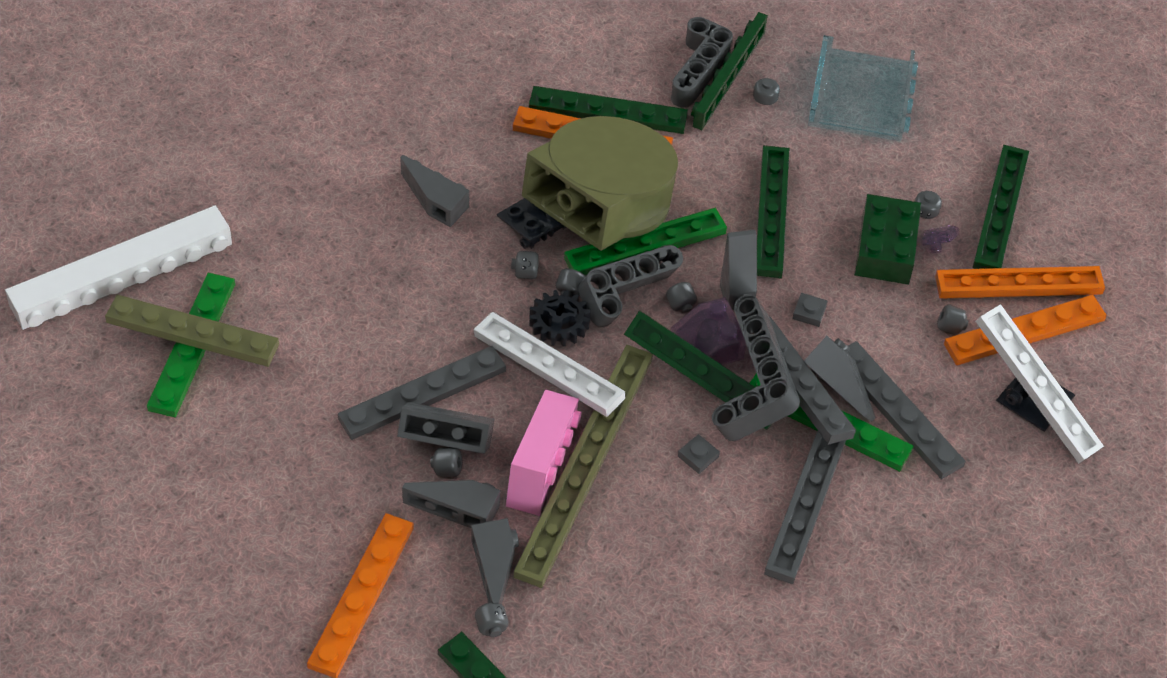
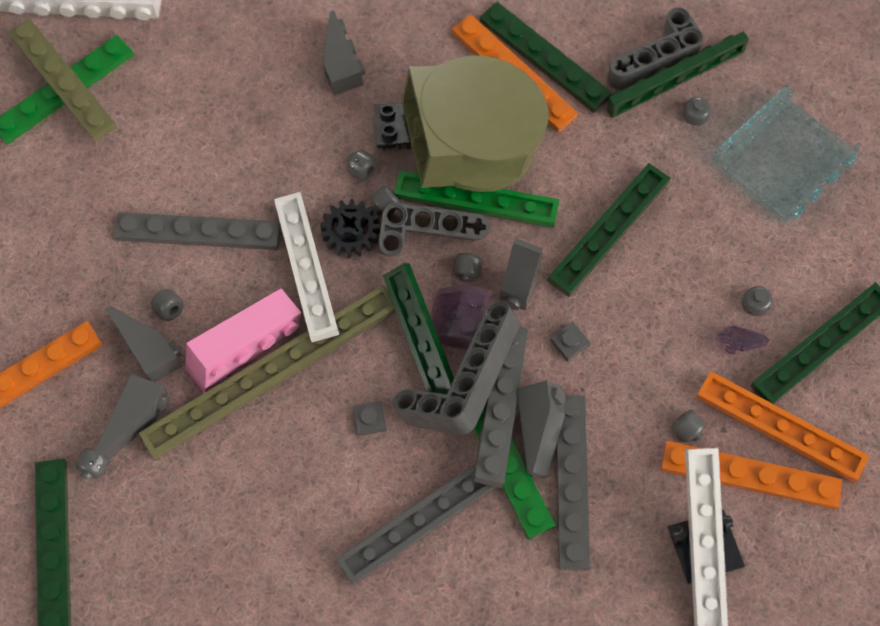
camera: 40 degrees right, 15 degrees up
(446, 427) = (182, 275): dark grey brick -> none
(888, 239) = (689, 315): dark green brick -> none

